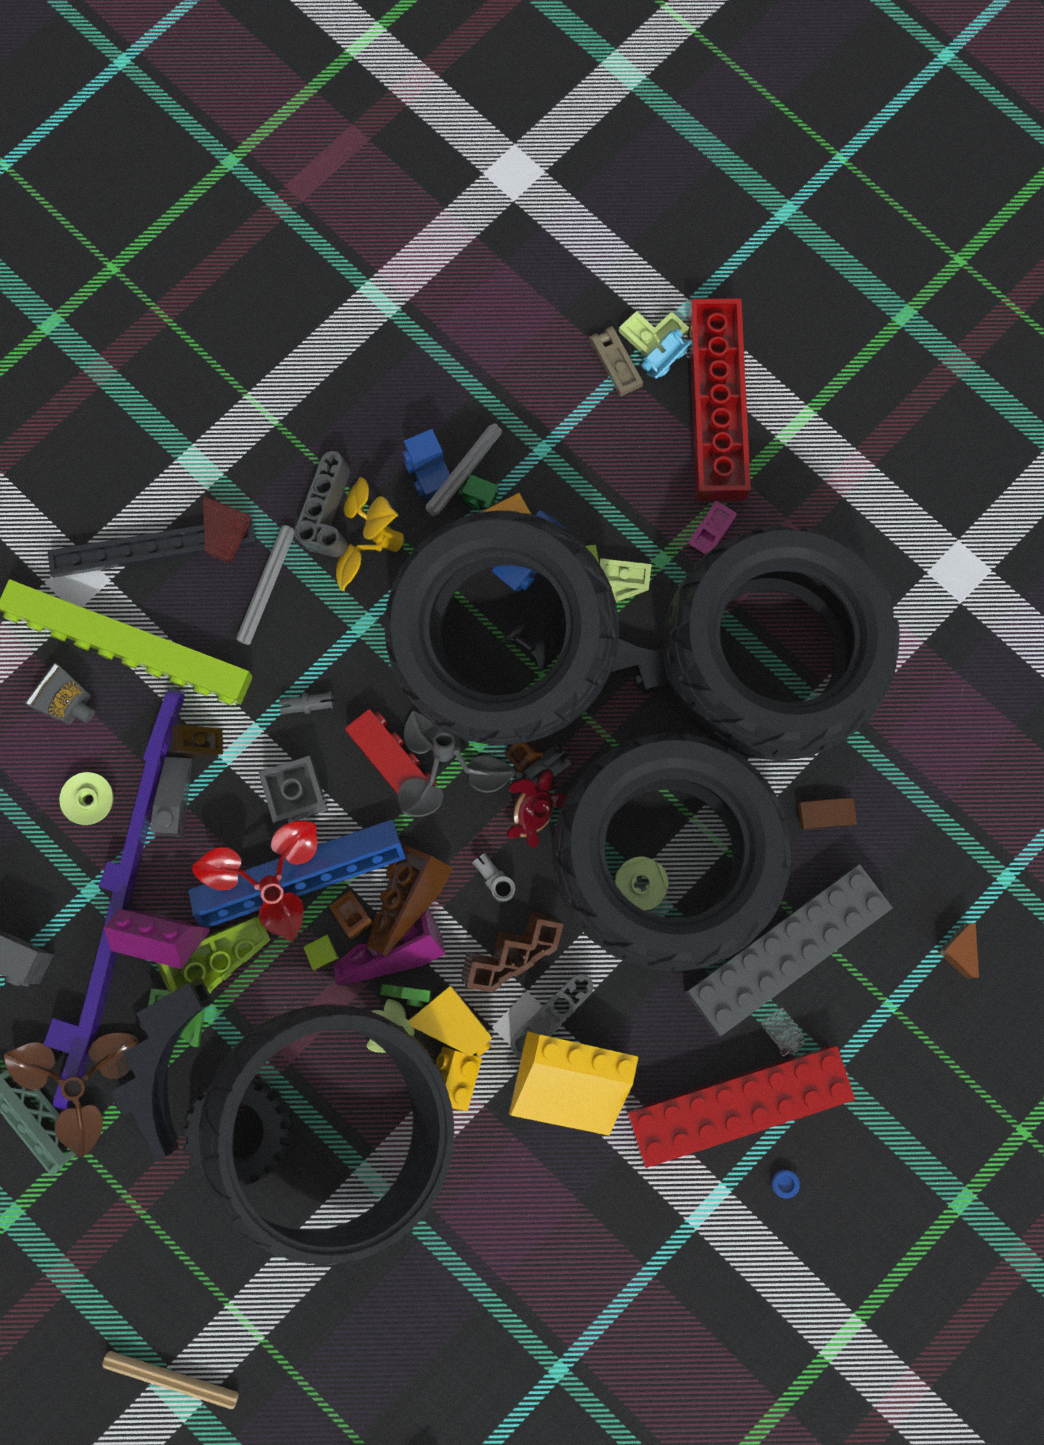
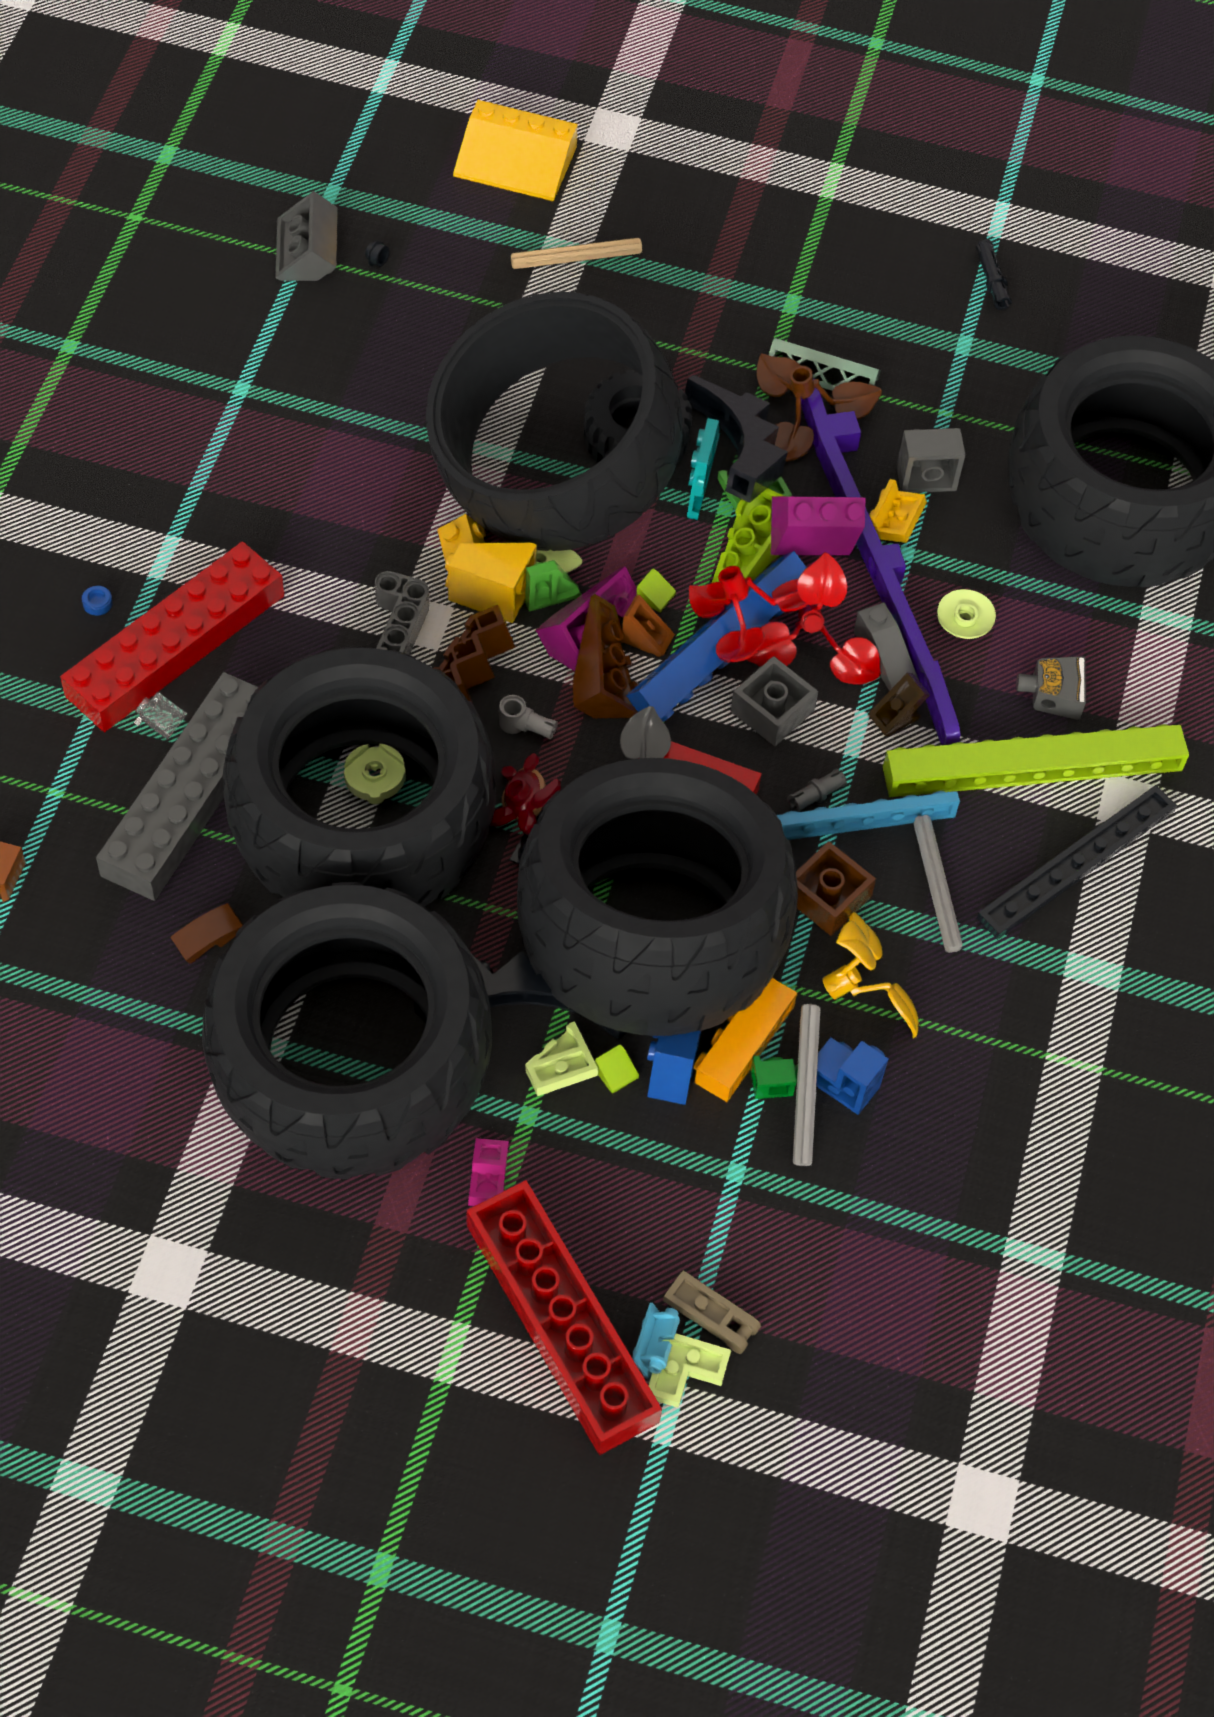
camera: 150 degrees right, 20 degrees down
(75, 925) = (897, 513): none -> yellow bracket
(198, 848) = (818, 585): none -> red plant
(212, 1050) = (702, 462): none -> teal wing
(223, 529) = (1018, 904): clear red wing -> none
(297, 666) = (868, 815): none -> dark azure plate
(331, 473) = (937, 987): dark grey beam -> none
(351, 610) = (832, 888): none -> reddish brown brick
(571, 1083) = (351, 581): yellow slope -> none

